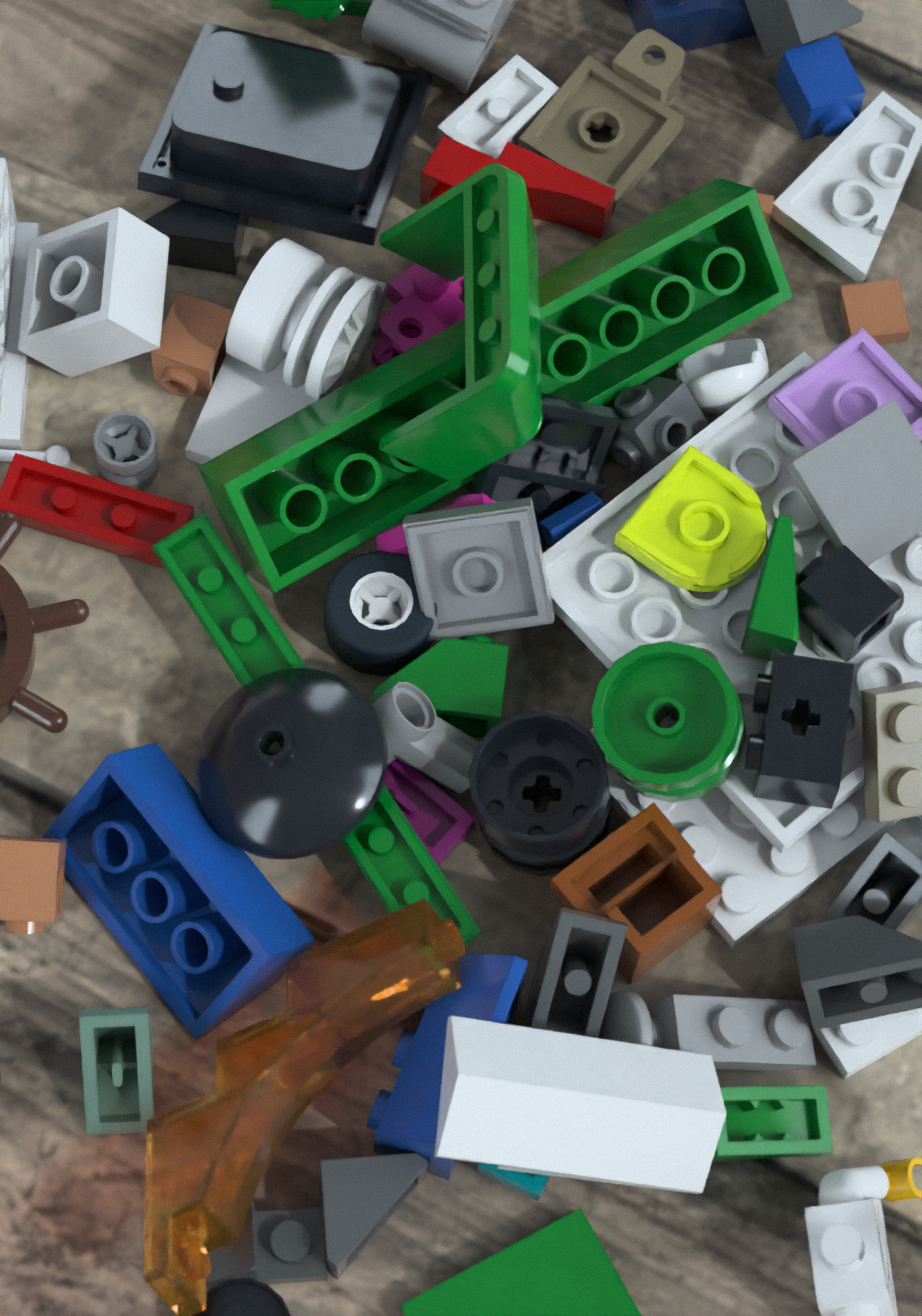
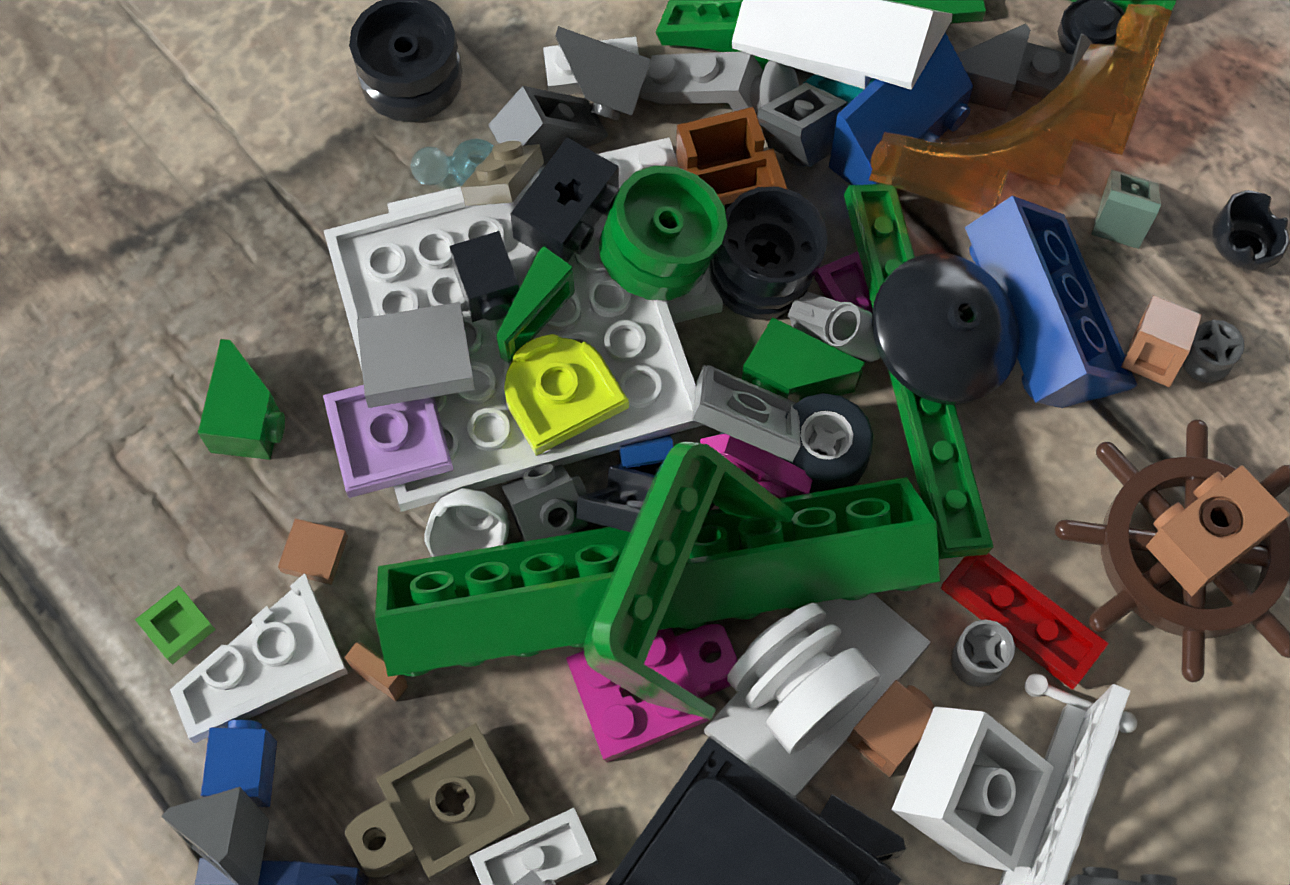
camera: 150 degrees left, 0 degrees up
(552, 190) = (596, 792): red slope -> none

